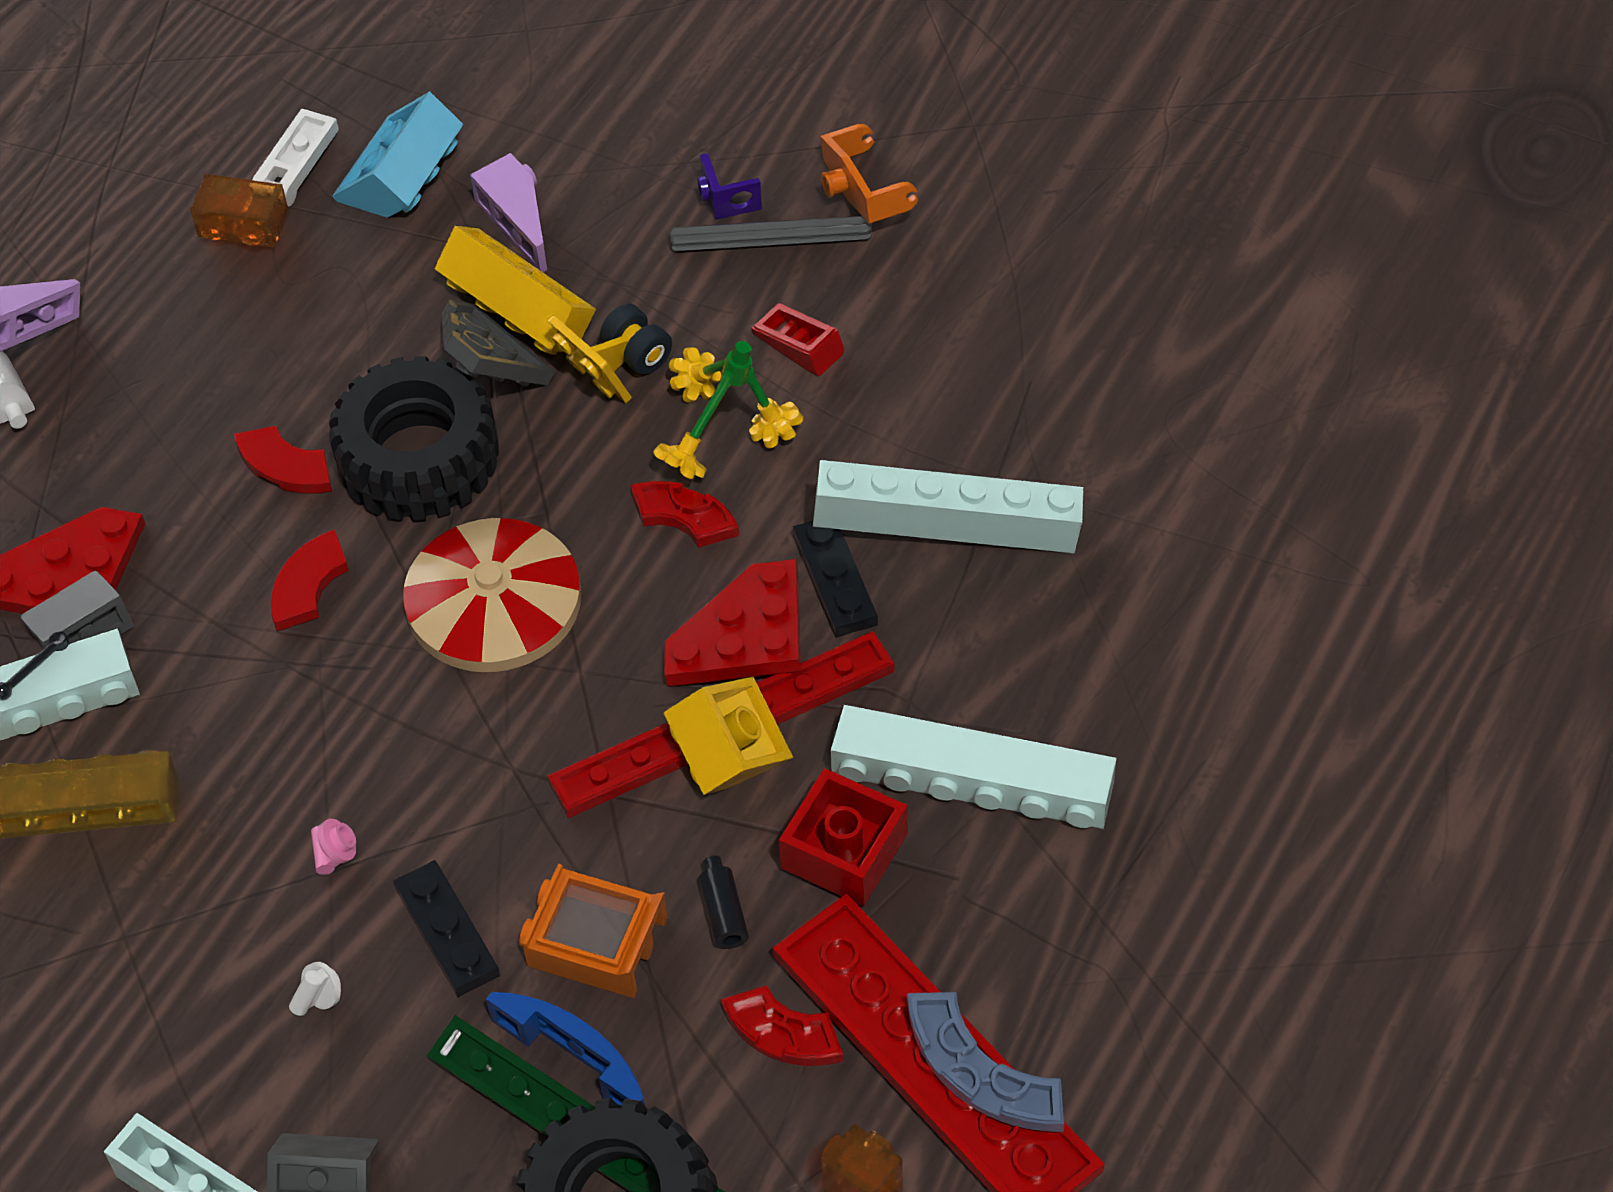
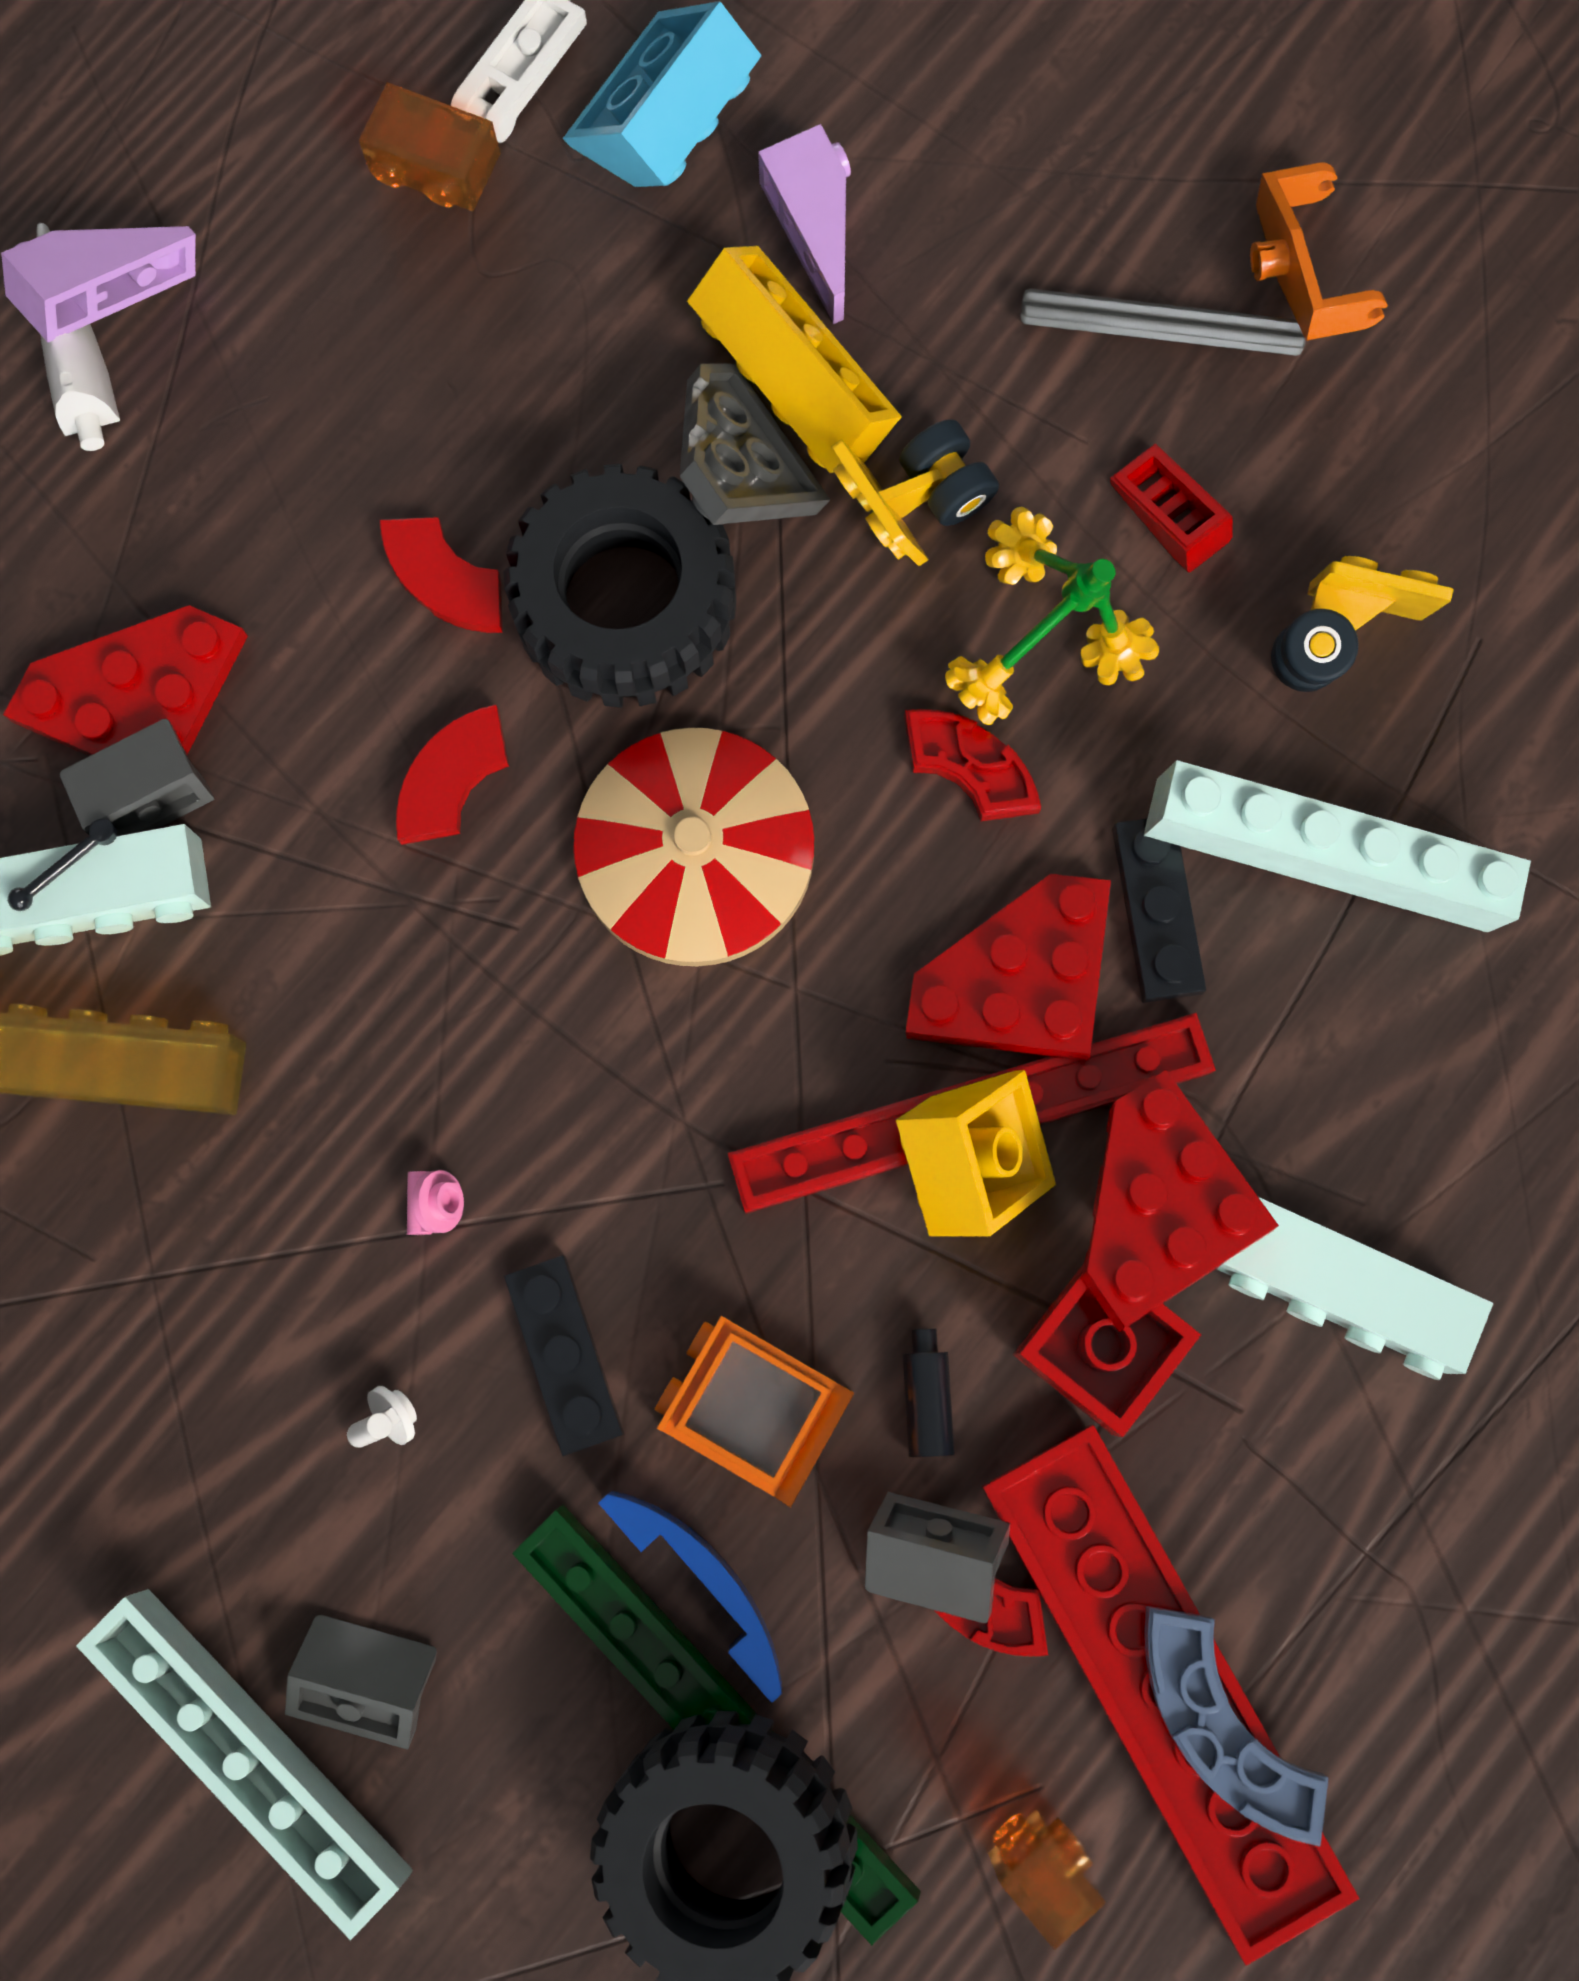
camera: 10 degrees right, 25 degrees up
(720, 196) = (1103, 253): dark purple bracket -> none
(743, 1000) = (935, 1556): none -> dark grey panel
(867, 731) = (1164, 1204): none -> red plate
(928, 357) = (1346, 596): none -> plate

